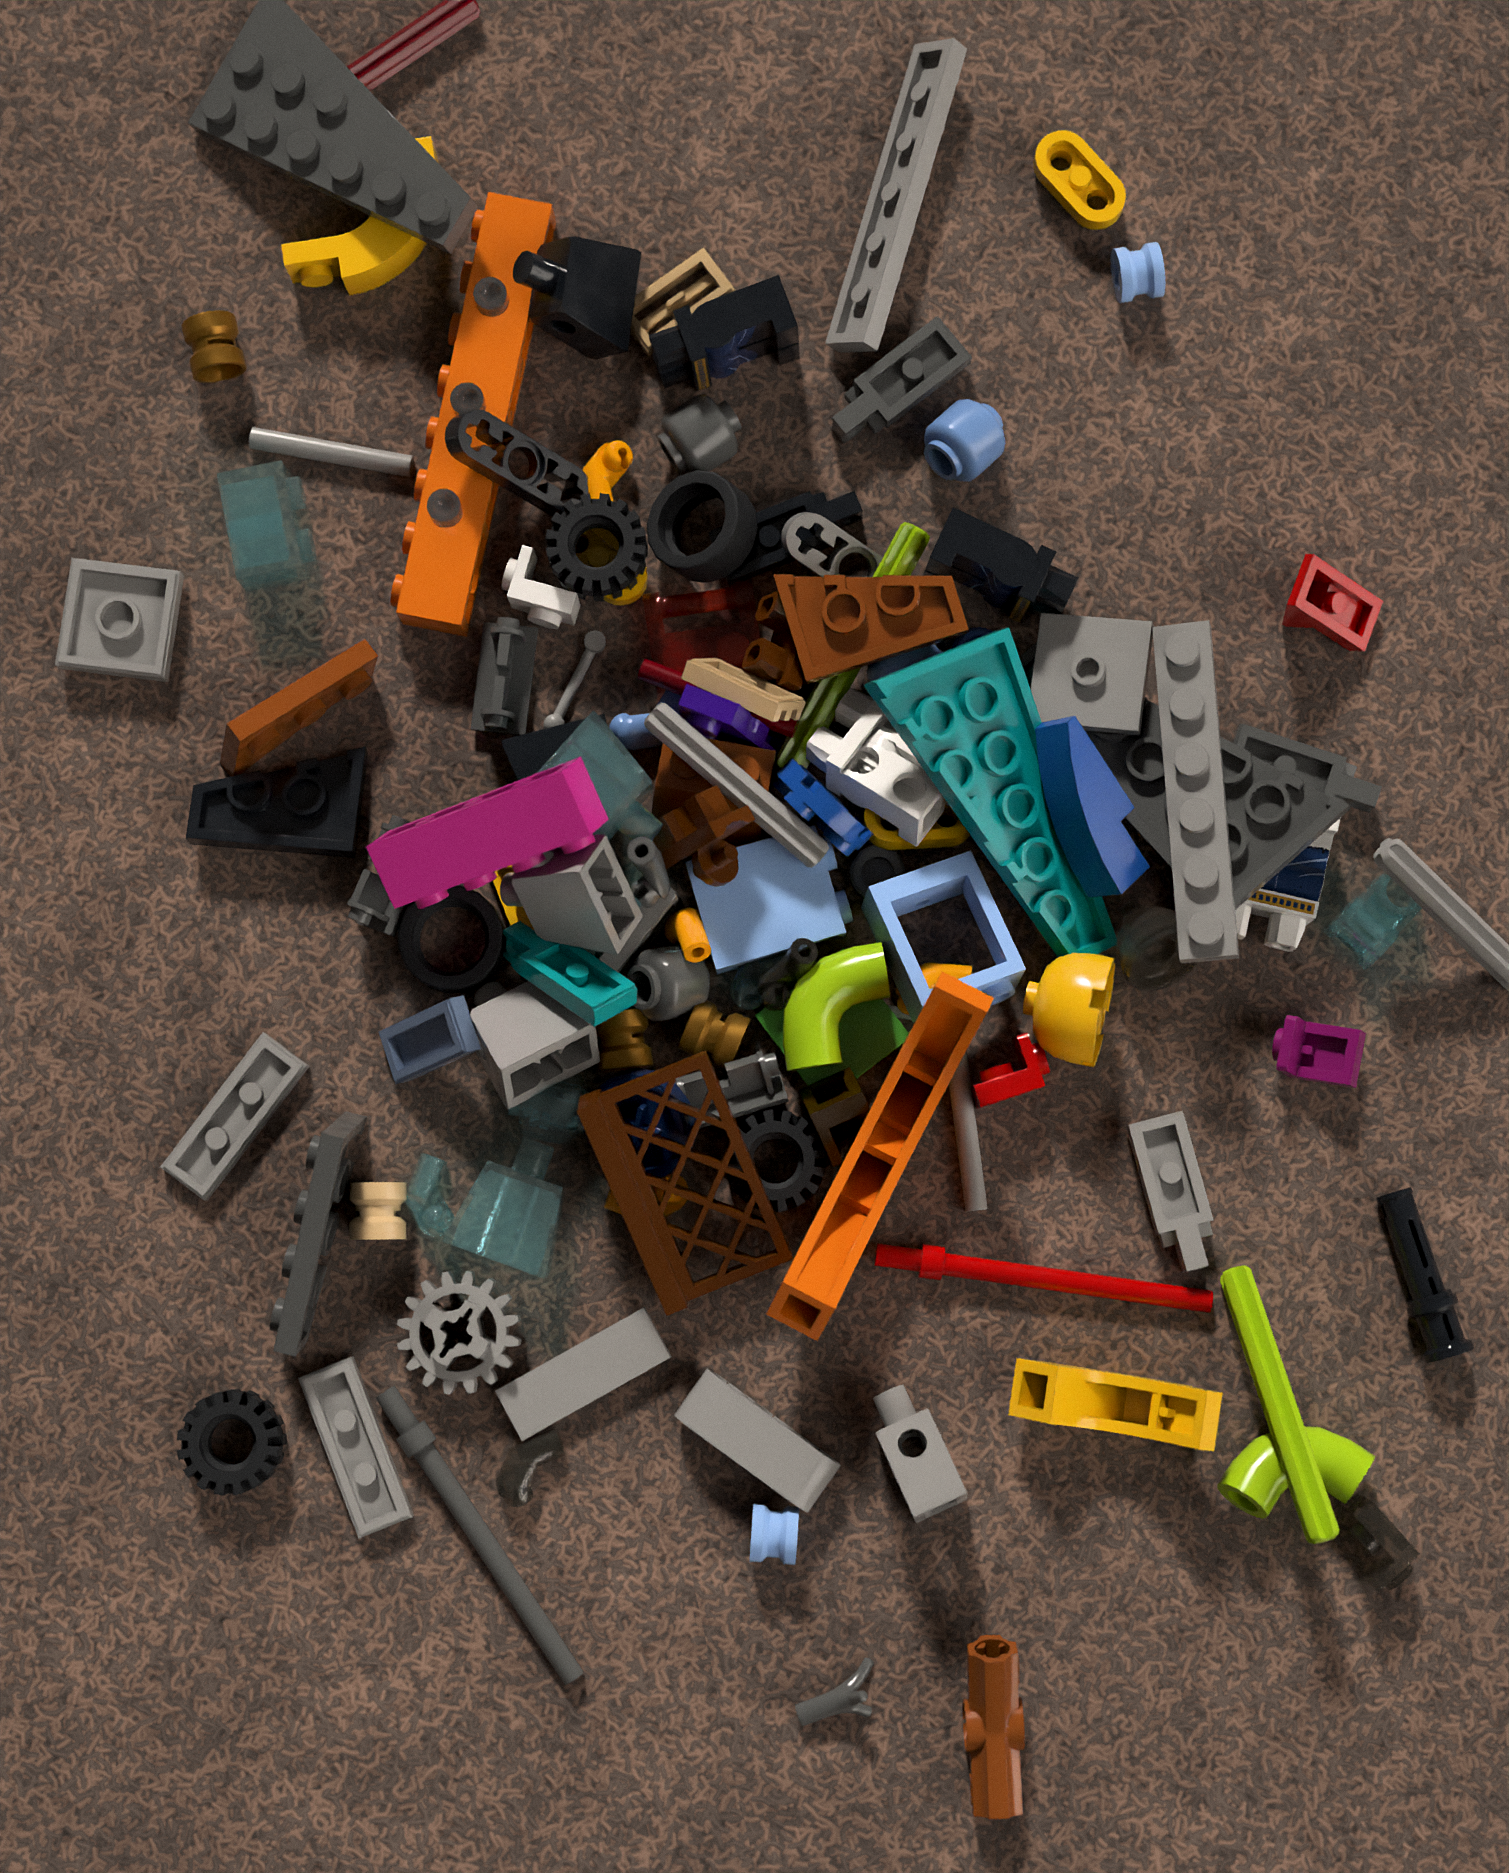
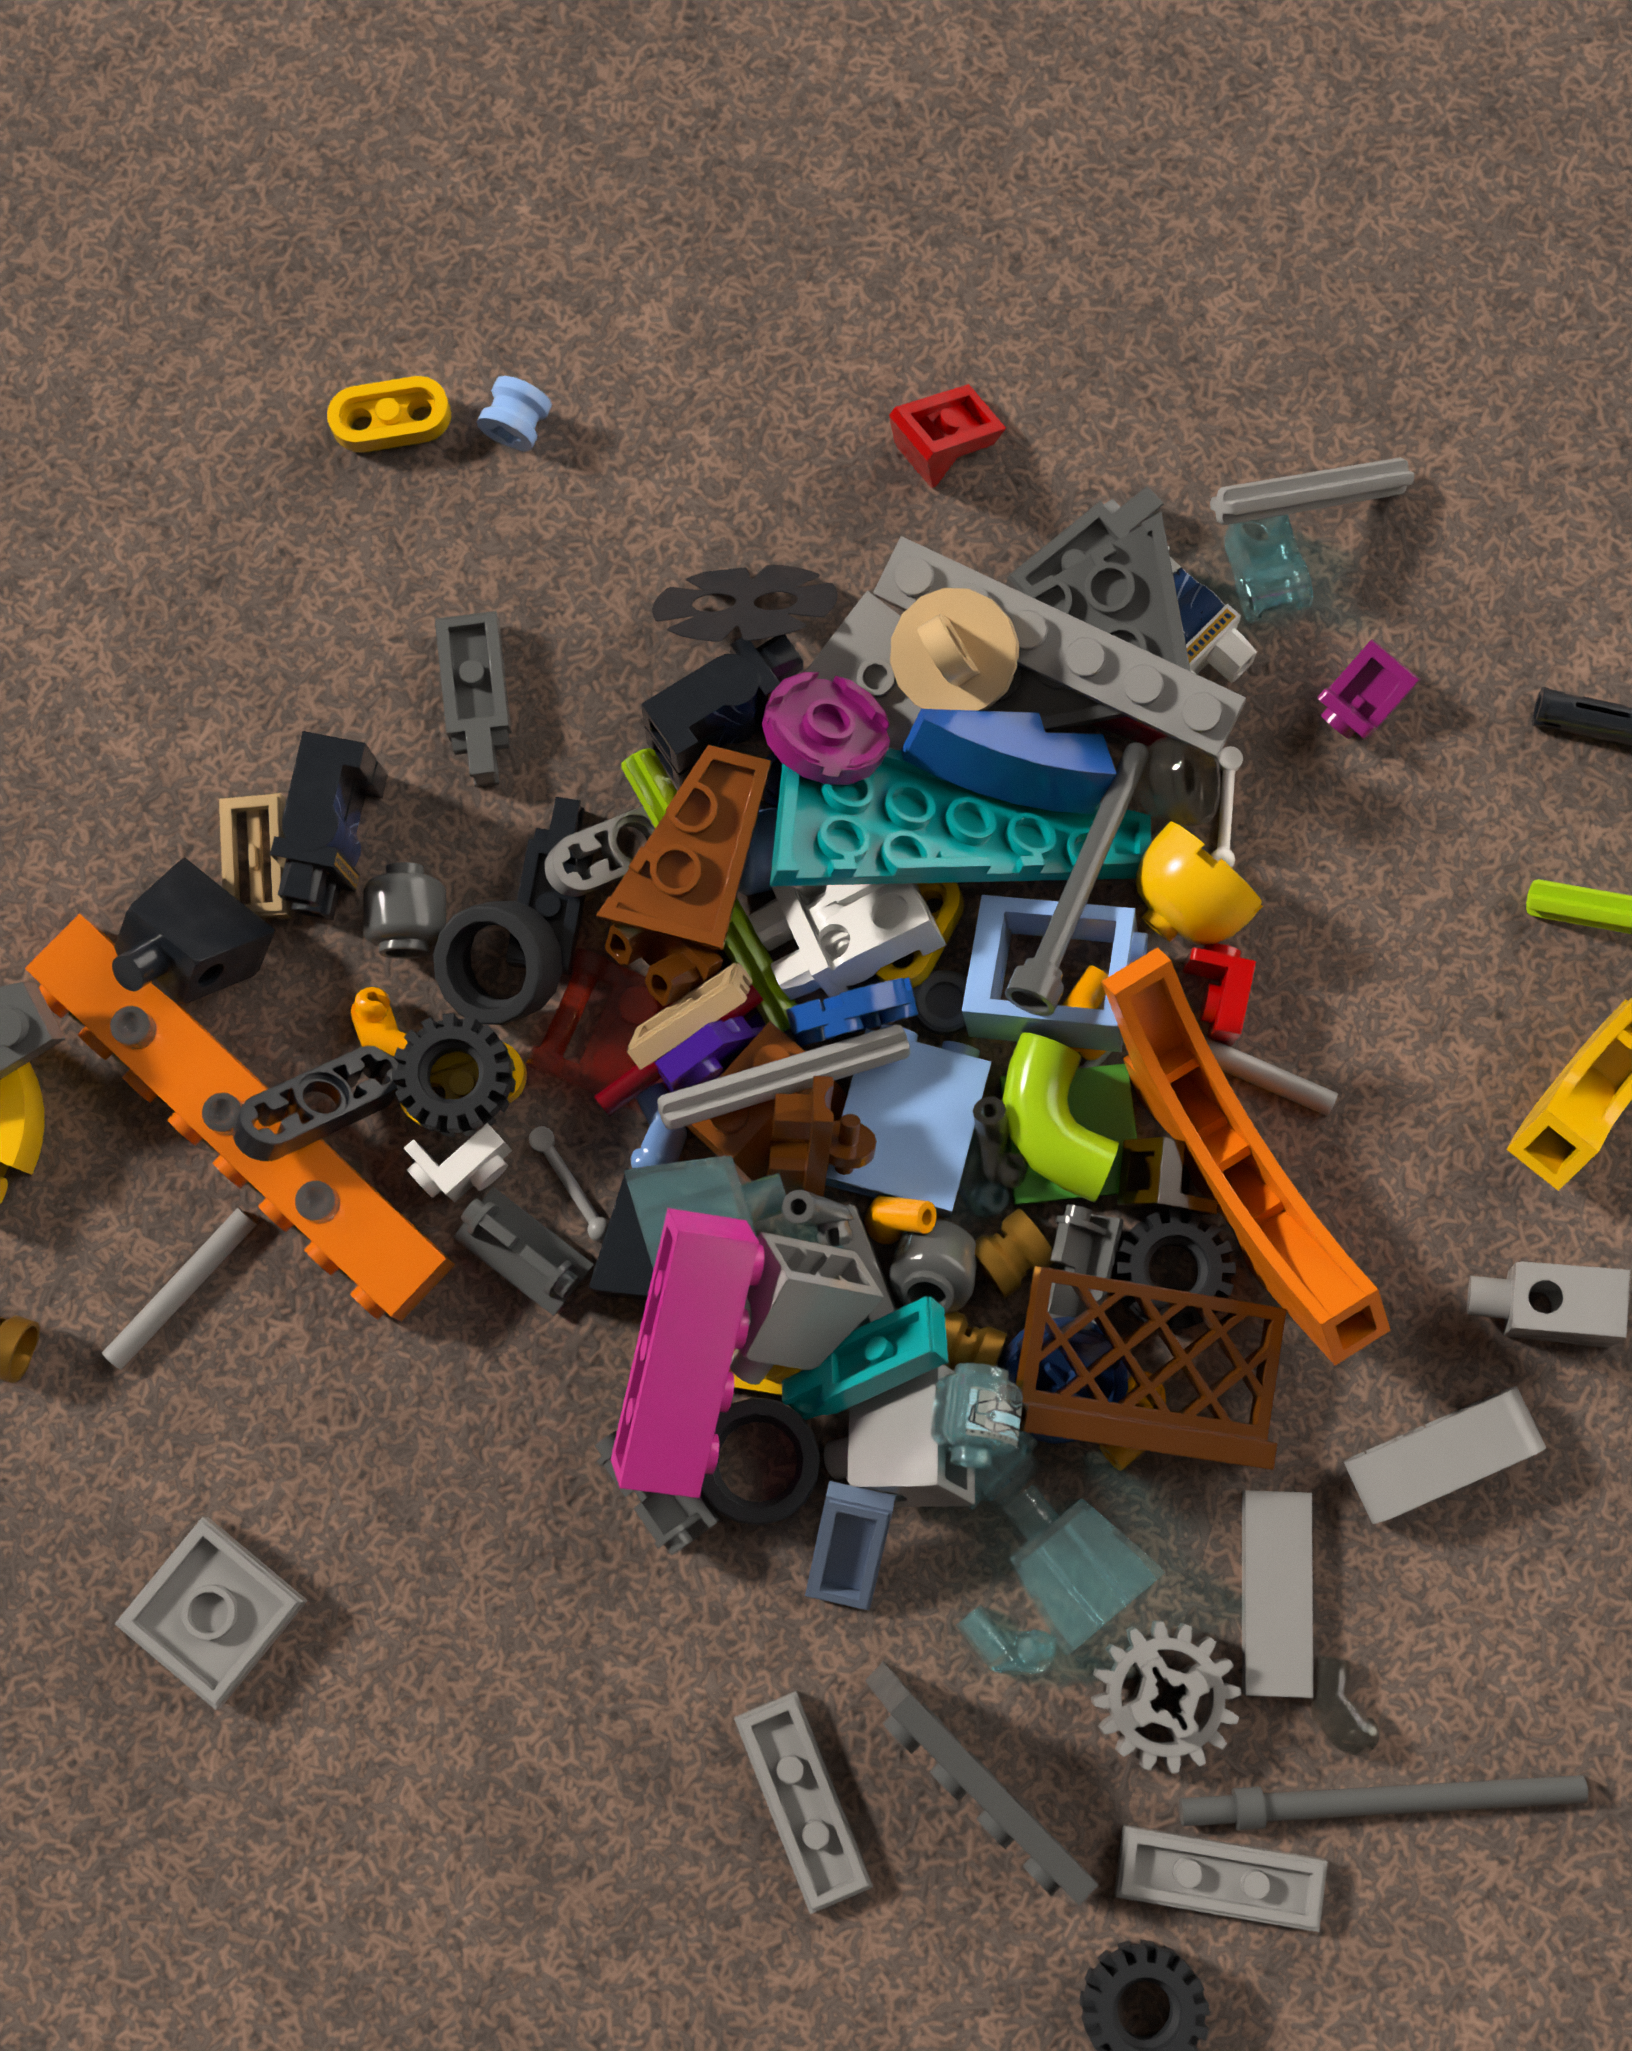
camera: 60 degrees left, 5 degrees down
(265, 525) = (211, 1399): clear light blue brick -> none
(284, 810) = (521, 1551): black wing -> none
(296, 707) = (422, 1479): dark orange wing -> none
(377, 1210) = (987, 1704): tan wheel -> none
(569, 1070) = (976, 1414): none -> clear light blue head
(774, 1534) = (1549, 1493): light blue wheel -> none
(896, 196) = (293, 589): light grey plate -> none
(920, 927) = (1037, 983): none -> dark grey piece
(933, 1262) = (1363, 1174): red bar -> none
(964, 440) = (572, 666): medium blue head -> none
(1019, 655) = (826, 728): none -> magenta tile
(1074, 550) = (752, 621): none -> black piece
(1139, 714) = (954, 651): none -> tan tile
(1173, 1186) = (1418, 903): light grey hinge -> none
(1201, 980) = (1229, 762): none -> white hinge

